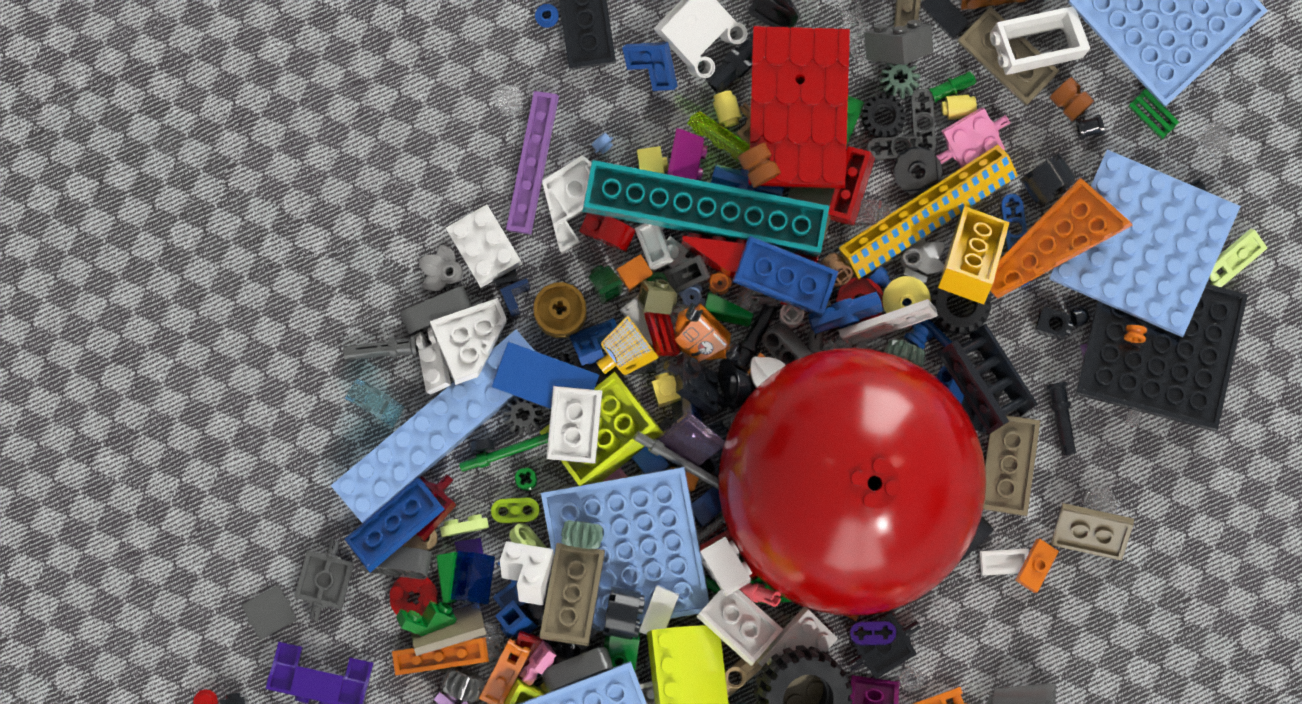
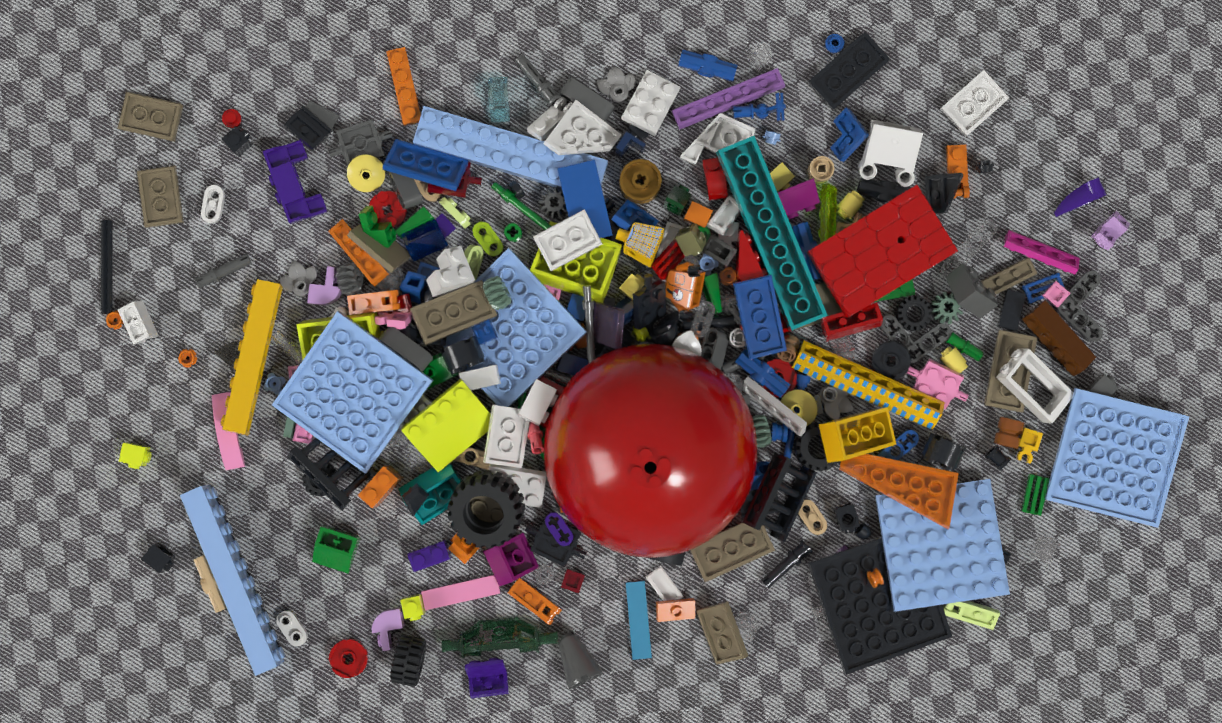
camera: 55 degrees right, 5 degrees up
(271, 625) = (307, 128): none -> black plate
(293, 494) = (404, 86): none -> orange plate
(348, 594) = (369, 164): none -> light yellow dish
(483, 161) = (707, 65): none -> blue piece
(568, 135) = (761, 110): none -> blue pin
(613, 575) = (485, 332): none -> blue tile
(670, 115) = (820, 169): none -> tan wheel
(722, 414) = (640, 334): none -> neon yellow plate
(744, 341) = (699, 318): none -> clear beam
(759, 165) = (824, 249): dark orange wheel -> none
(936, 654) = (572, 580): none -> dark red plate
(1022, 612) = (638, 620): none -> dark azure tile
(1029, 358) = (812, 516): none -> tan plate
(1094, 84) = (1030, 442): none -> yellow plate

